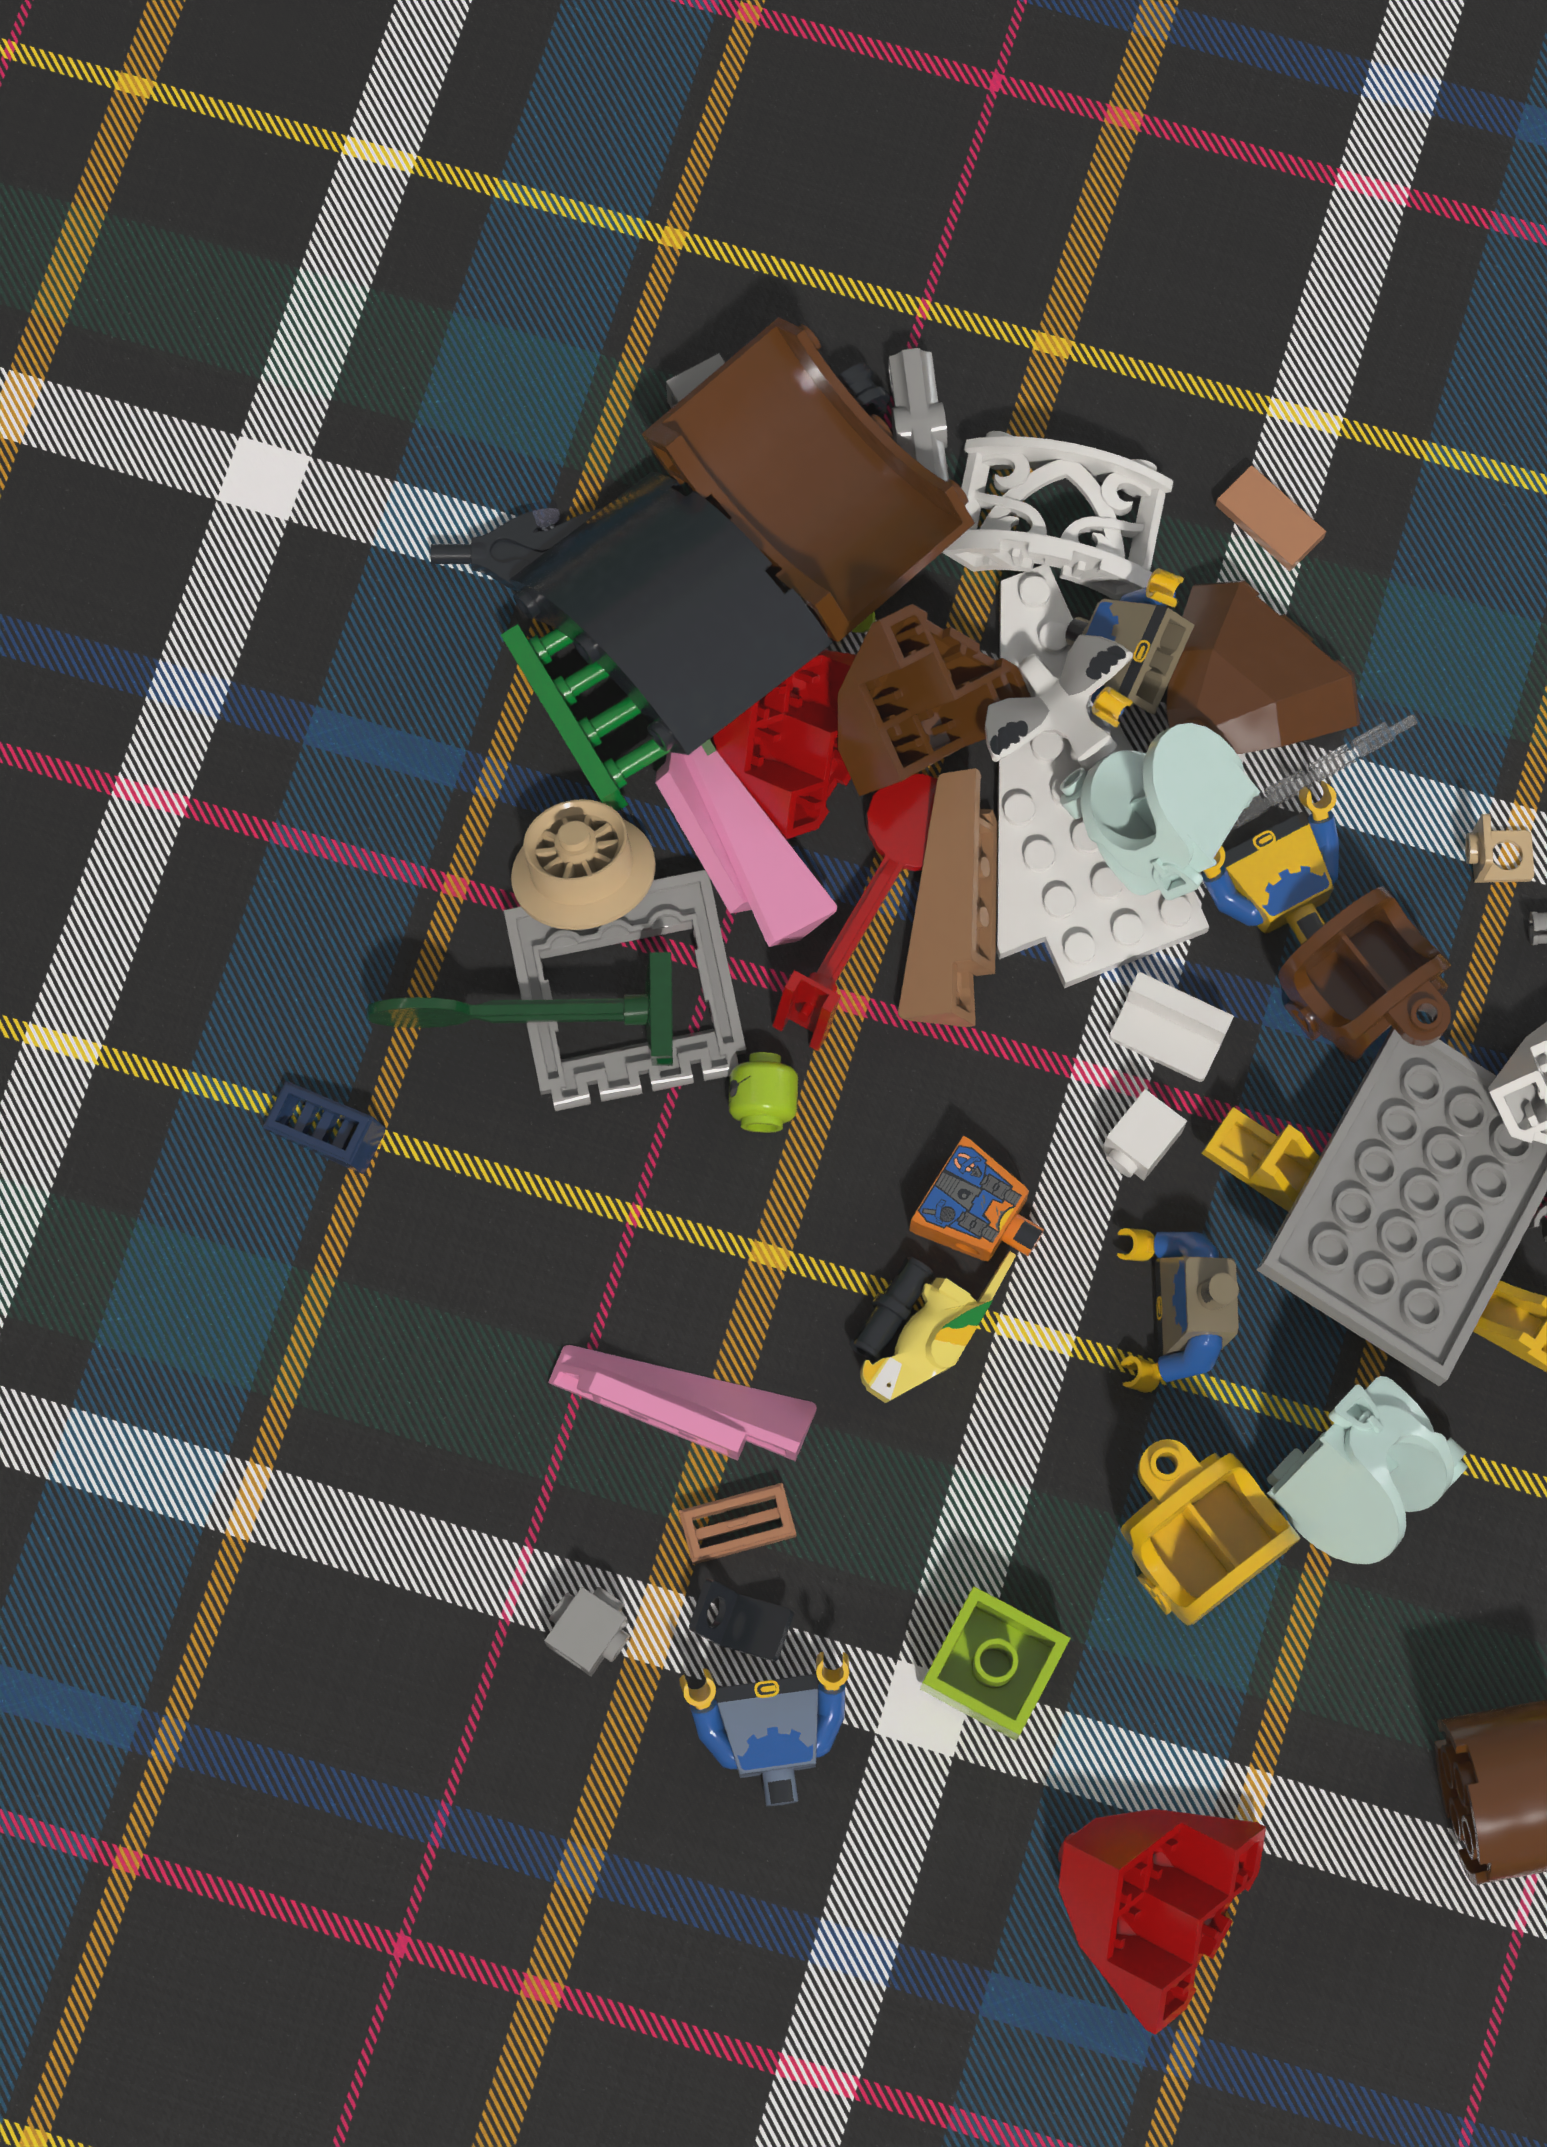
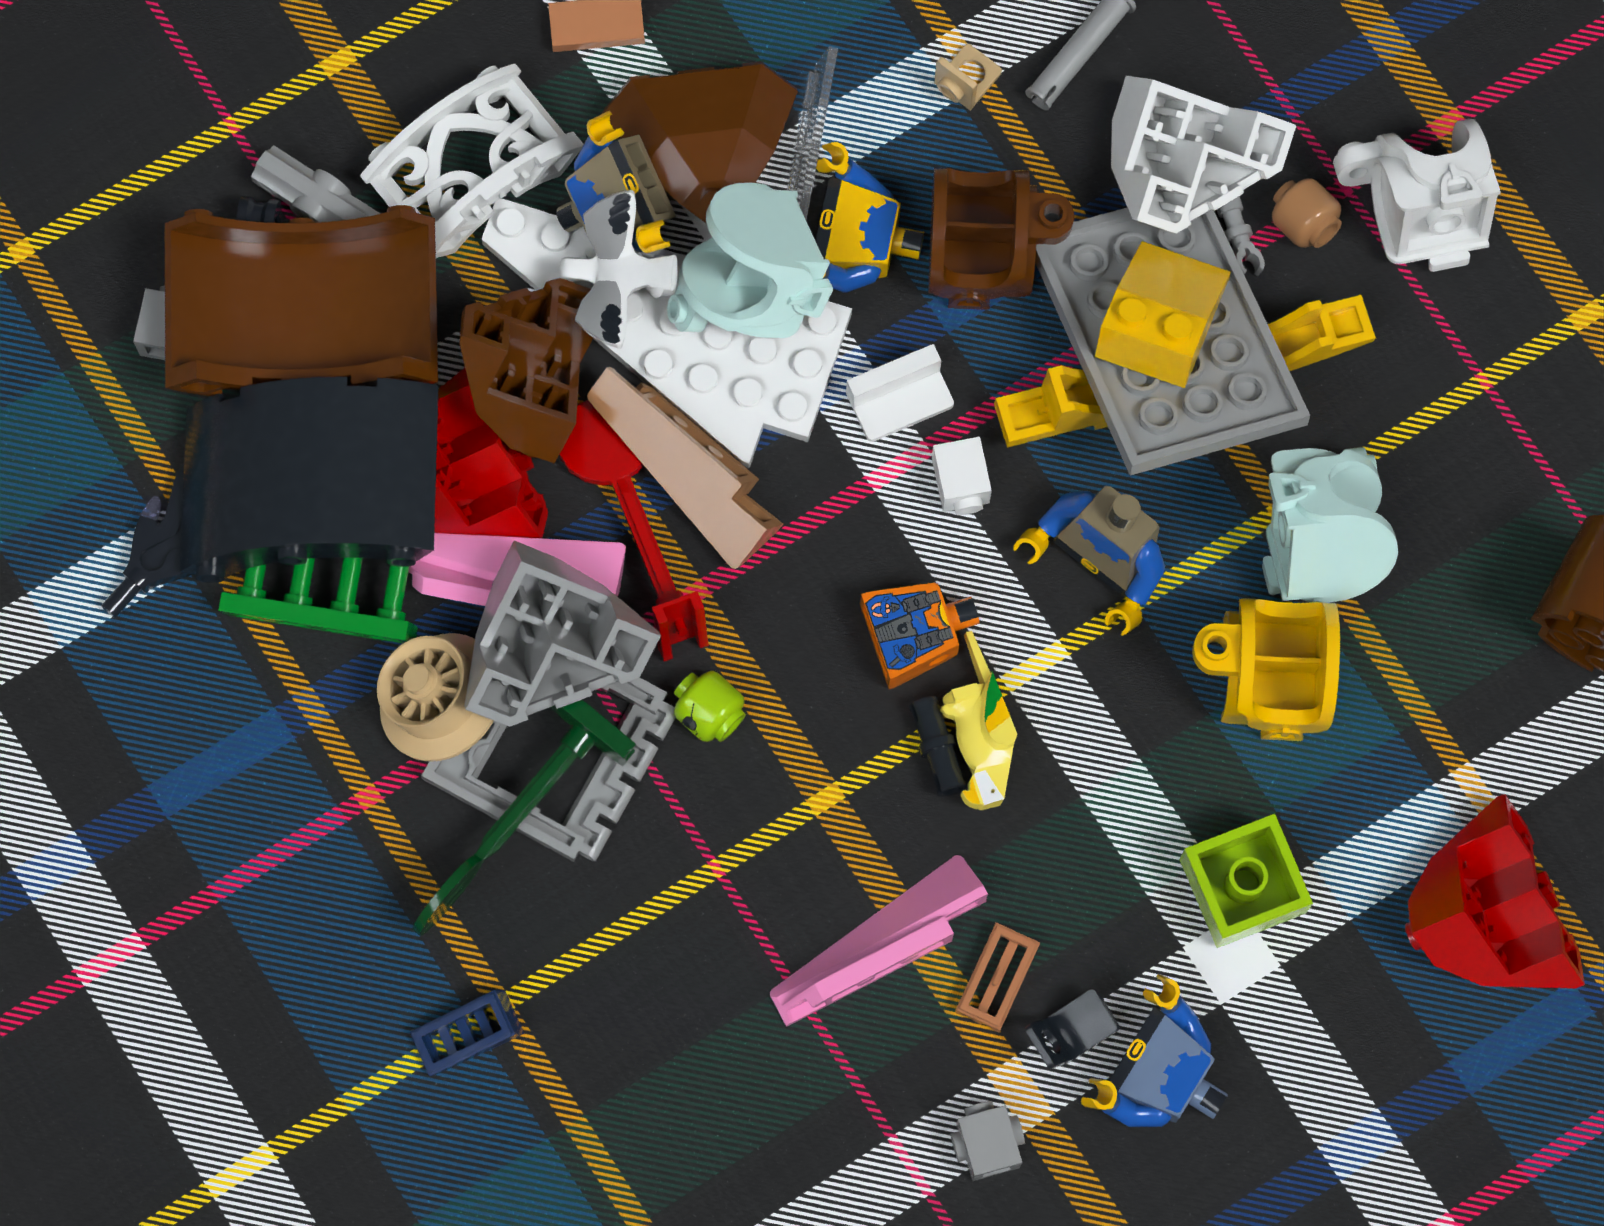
camera: 50 degrees left, 0 degrees up
(698, 912) = (550, 639): none -> light grey brick
(1425, 1179) = (1161, 314): none -> yellow slope

